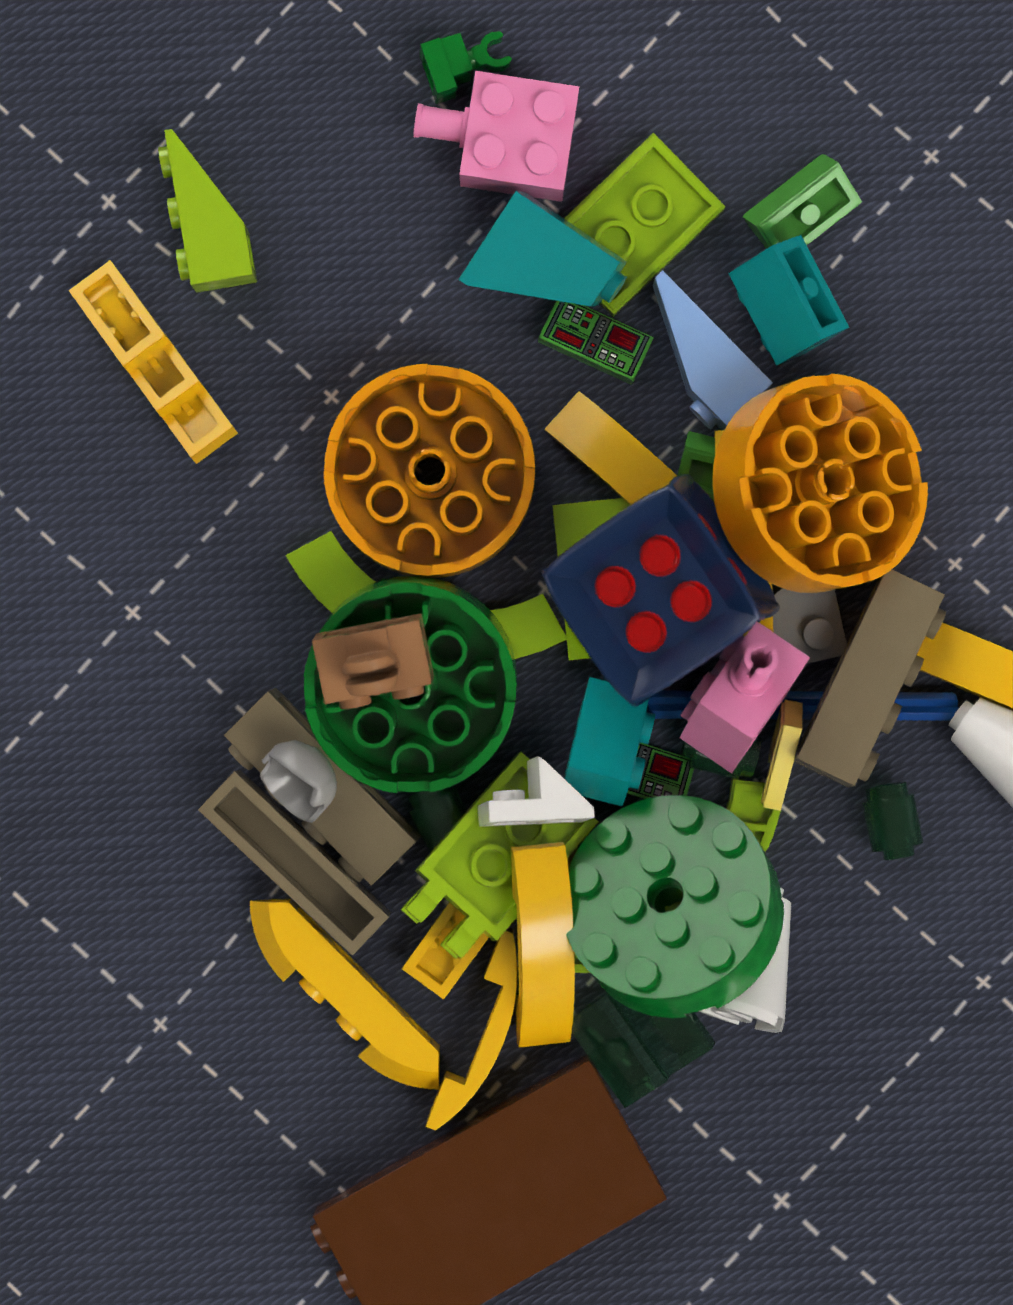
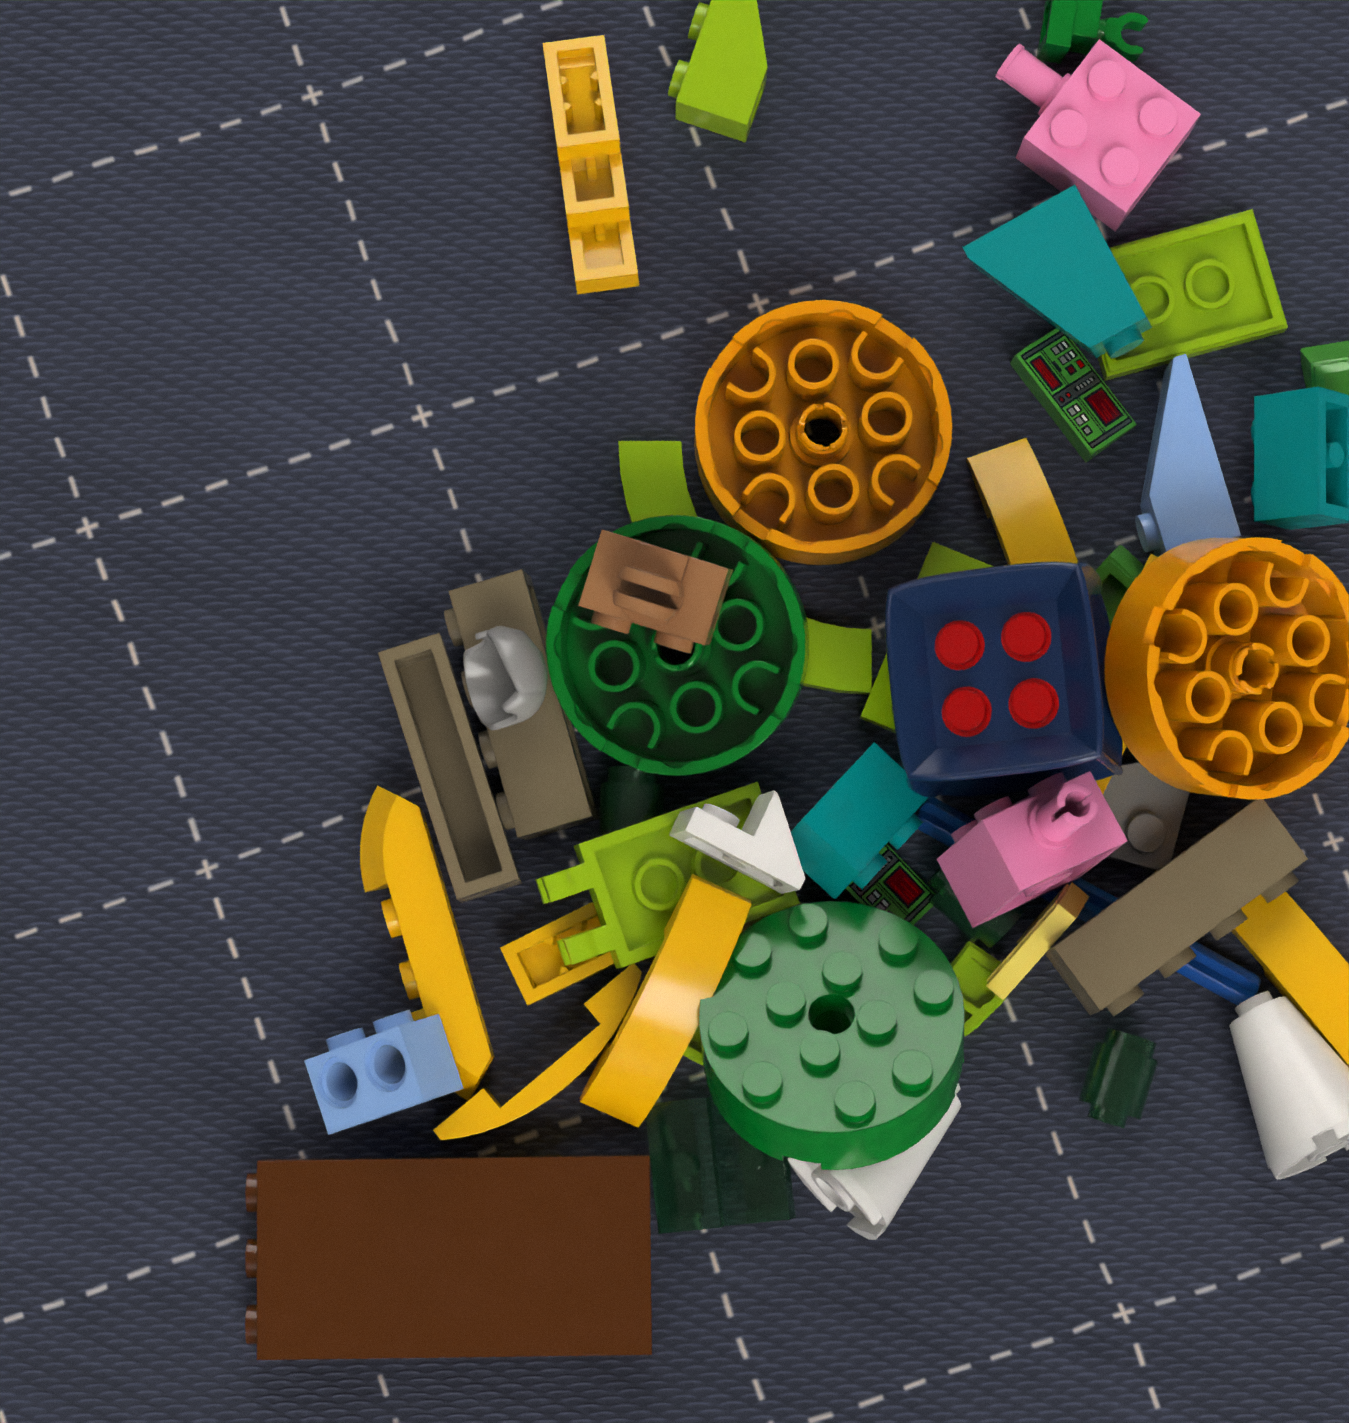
camera: 25 degrees right, 5 degrees down
(368, 1106) = (382, 1072): none -> light blue brick

